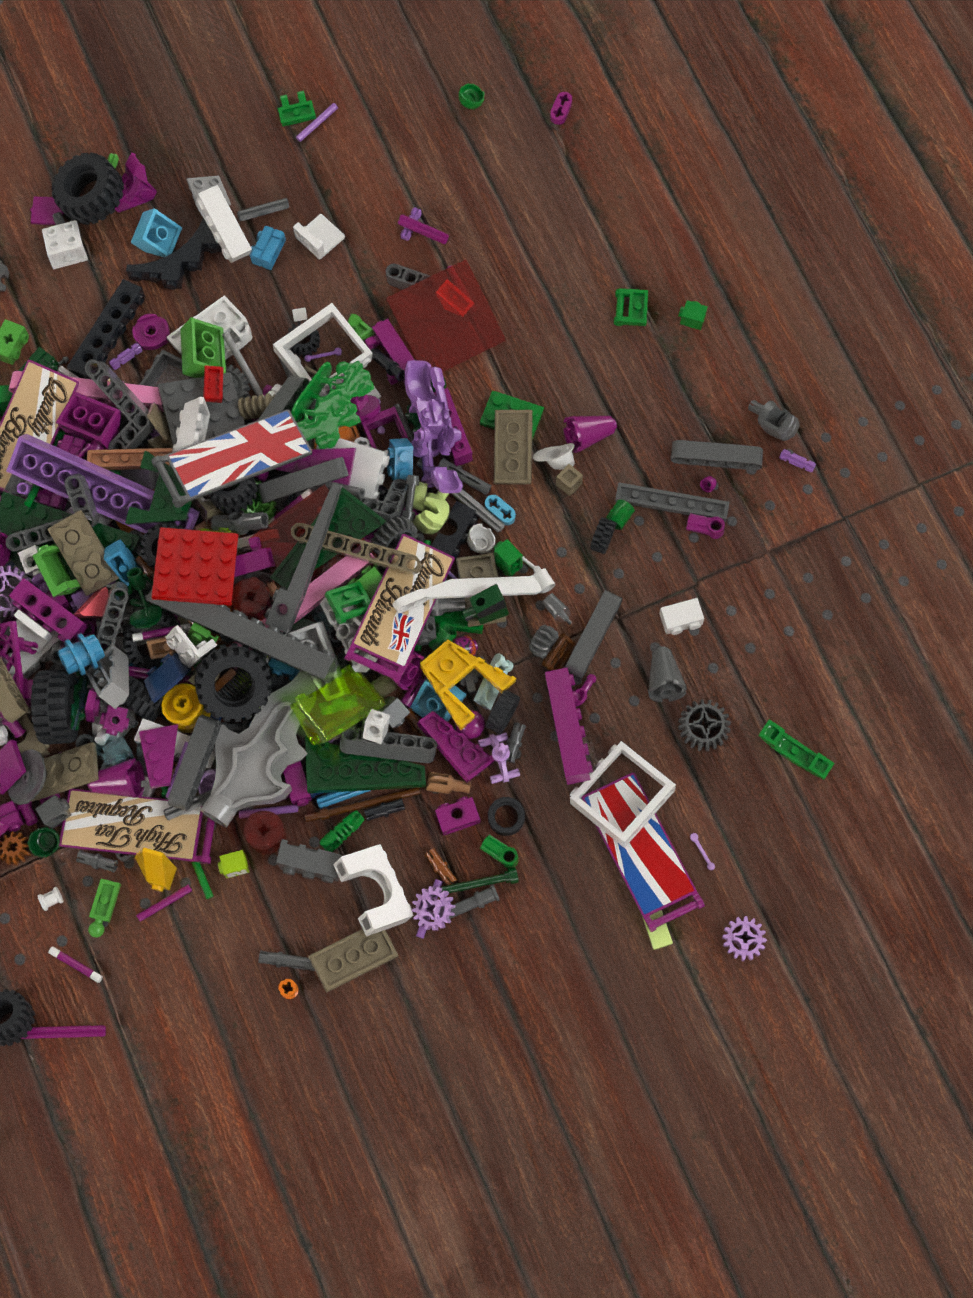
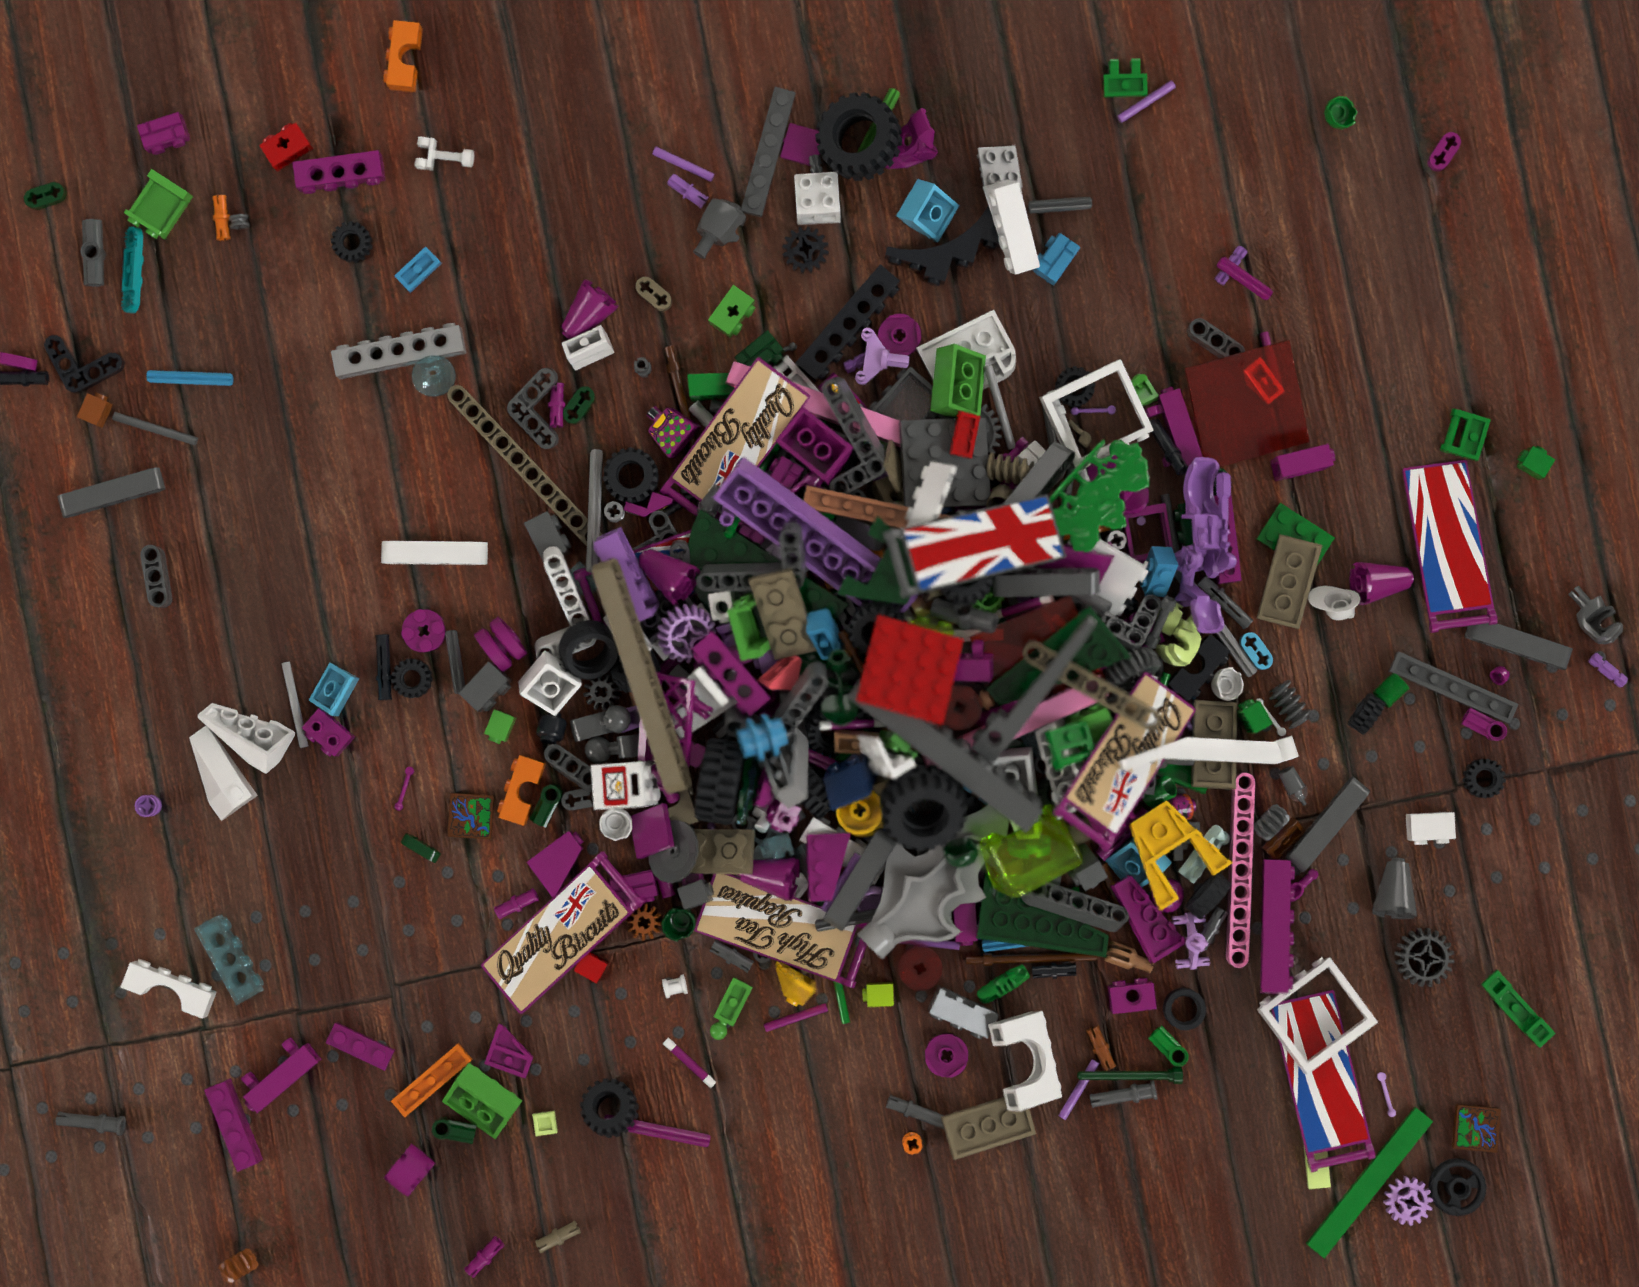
camera: 10 degrees right, 15 degrees up
(20, 221) = (768, 152): none -> dark grey plate
(54, 289) = (814, 248): none -> black gear
(133, 350) = (877, 358): none -> lavender axle
(275, 716) = (961, 852): none -> dark green hair
(293, 905) = (959, 1055): none -> magenta plate
(299, 314) = (1076, 351): white sticker -> none
(318, 236) = (1120, 256): white bracket -> none
(376, 726) = (1068, 888): white brick -> none
(426, 904) = (1084, 1087): lavender gear -> none
(487, 606) = (1227, 771): dark green torso -> none
(501, 352) = (1302, 462): none -> magenta window
(527, 696) = (1243, 880): none -> bright pink beam
(537, 545) = (1290, 704): none -> dark grey piece
(569, 480) = (1344, 637): dark tan brick -> none
(638, 391) = (1448, 543): none -> flag
(706, 932) = (1369, 1182): none -> green tile
(716, 579) = (1496, 773): none -> black tyre
(788, 862) = (1476, 1128): none -> tile
(799, 907) = (1453, 1206): none -> black wheel

